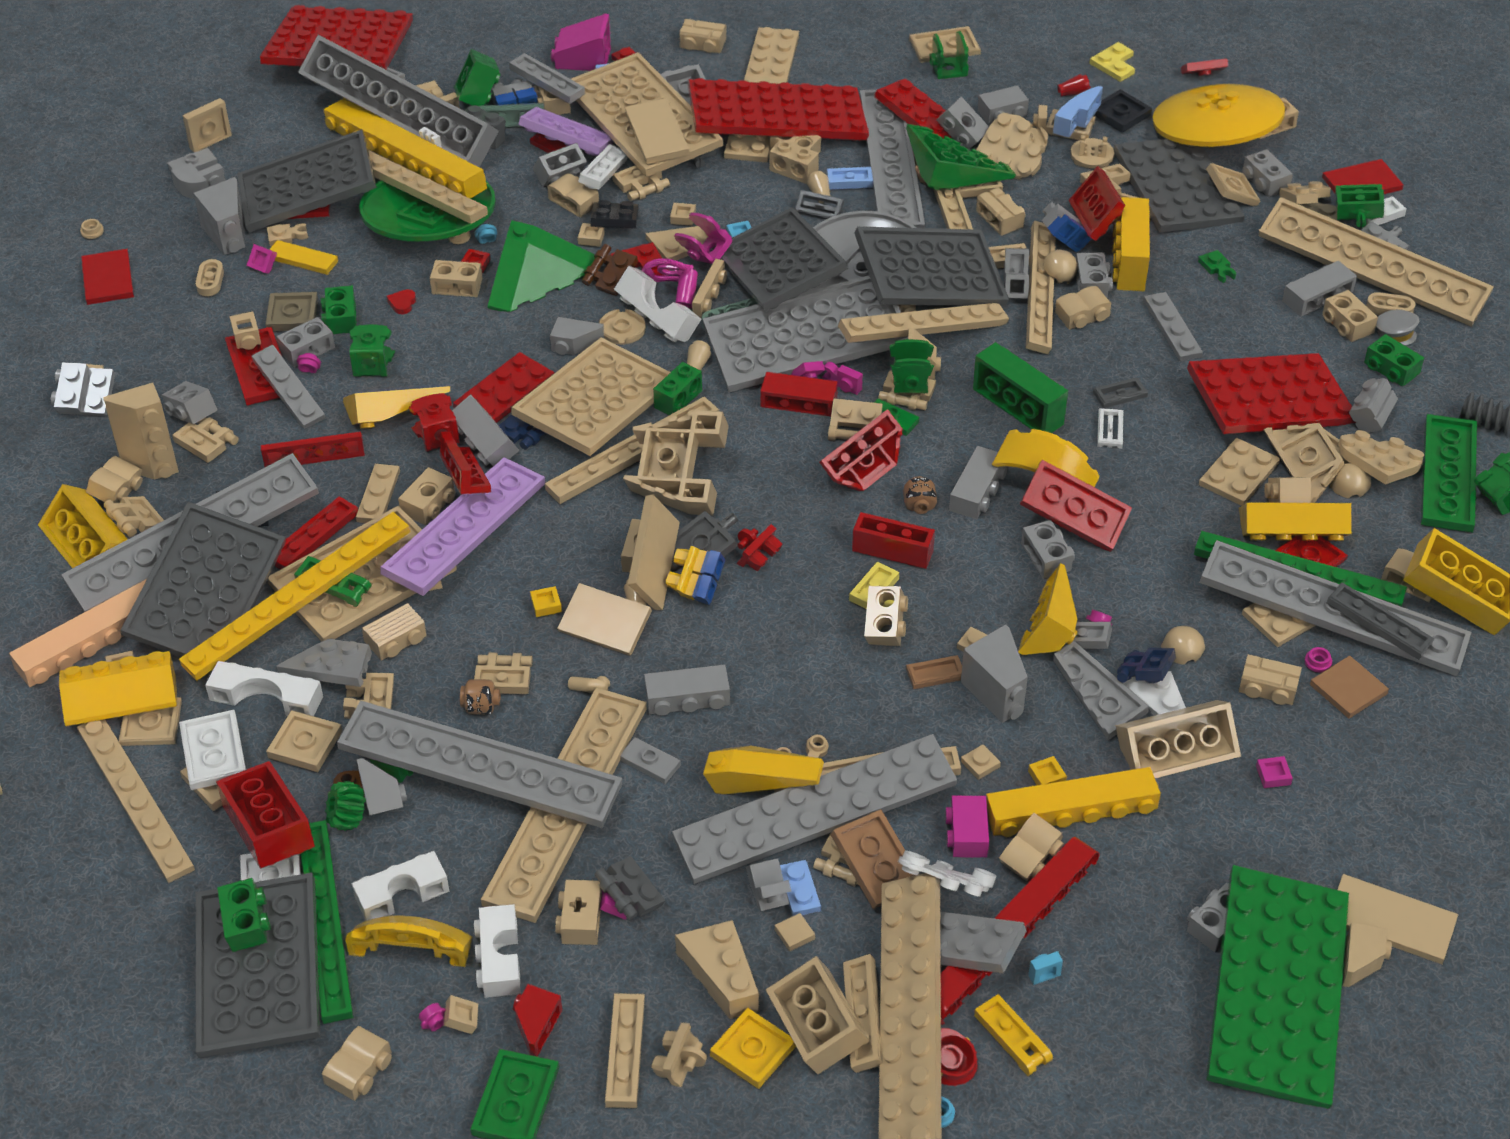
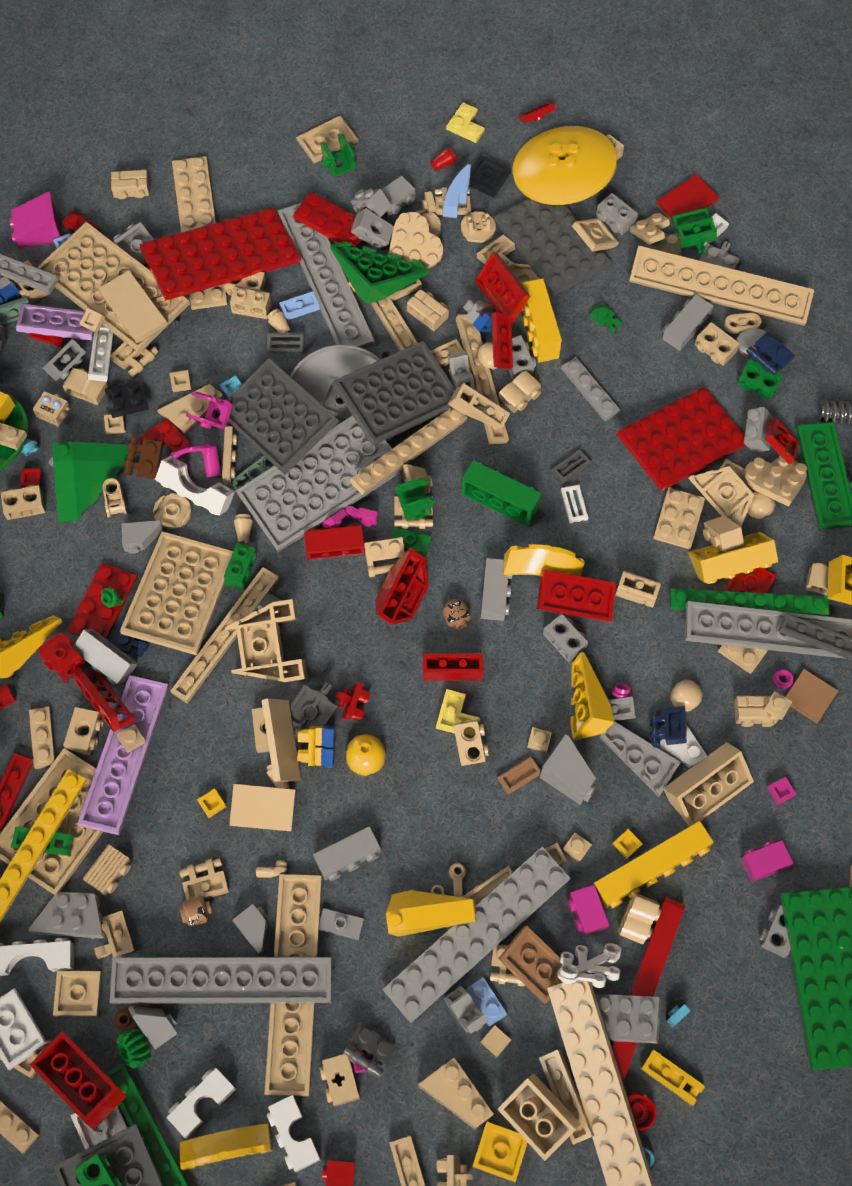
camera: 20 degrees left, 20 degrees up
(478, 509) = (130, 738): none -> tan plate
(514, 379) = (110, 597): none -> green plate
(526, 205) = (51, 408): none -> tan head
(541, 728) = (253, 927): none -> light grey slope
(560, 295) = (114, 501): none -> tan piece
(606, 133) = (92, 320): none -> tan plate
(751, 601) = (365, 754): none -> yellow cylinder
(974, 94) = (372, 200): none -> light grey brick
(1020, 300) = (478, 407): none -> tan slope
(1077, 247) = (502, 341): none -> red plate
(1158, 521) = (638, 589): none -> tan brick
(1226, 837) = (766, 860): none -> dark pink brick
(1298, 674) = (778, 705): none -> tan plate
(1399, 418) = (782, 440): none -> red plate
(1413, 332) = (773, 350): none -> dark blue plate

